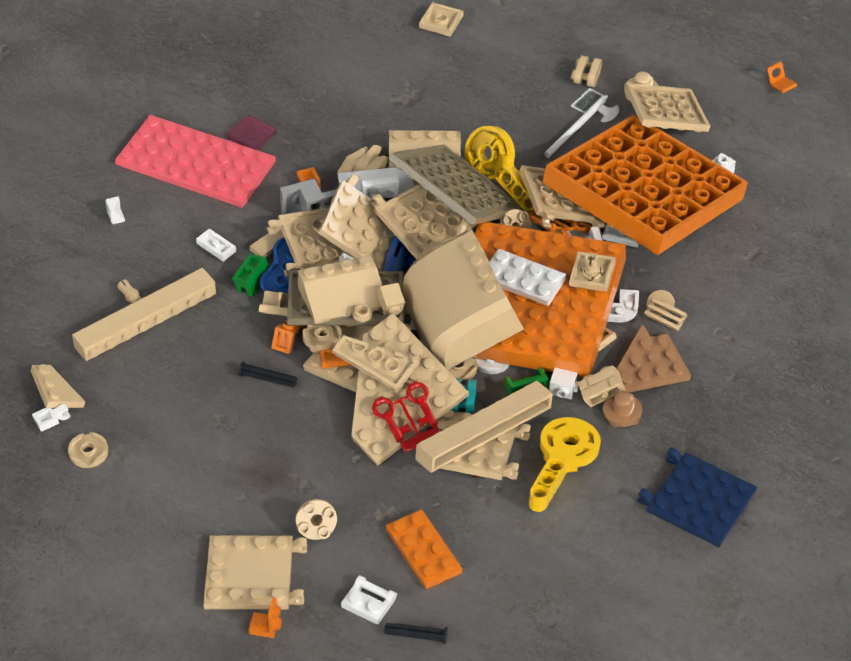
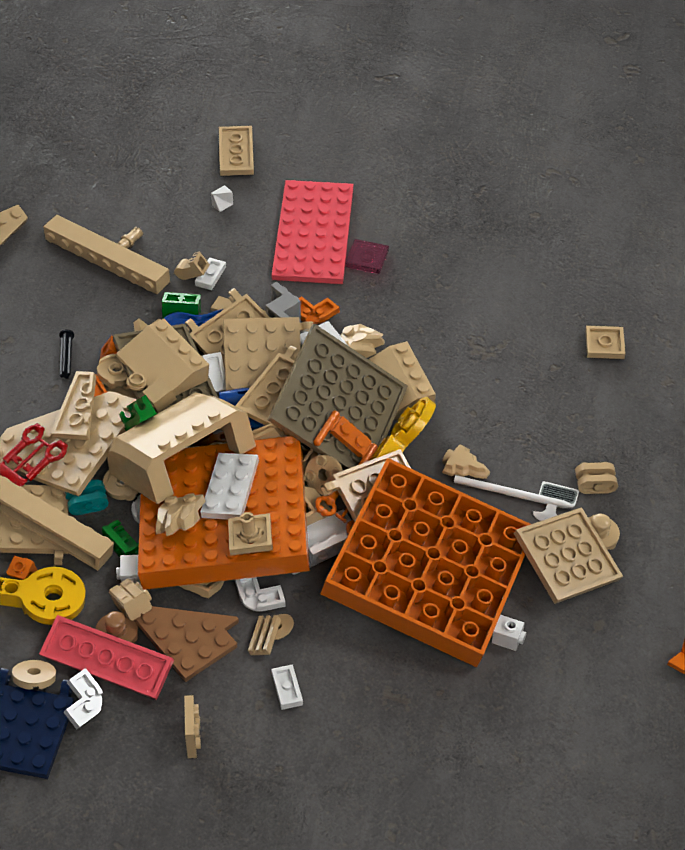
camera: 70 degrees right, 0 degrees up
(48, 183) = (236, 150): none -> tan plate
(205, 253) = (192, 268): none -> tan leg
(417, 313) = (139, 410): none -> green hinge
(497, 191) = (347, 435): none -> orange plate
(534, 454) = (21, 568): none -> orange bracket
(535, 143) = (463, 463): none -> tan rock
(546, 314) = (178, 513): none -> tan plate
(652, 419) = (107, 657): none -> coral plate
(659, 465) = (33, 674): none -> tan tile
(700, 448) = (89, 699): none -> white plate
(723, 313) = (287, 687): none -> white plate
(750, 376) = (192, 726): none -> tan plate

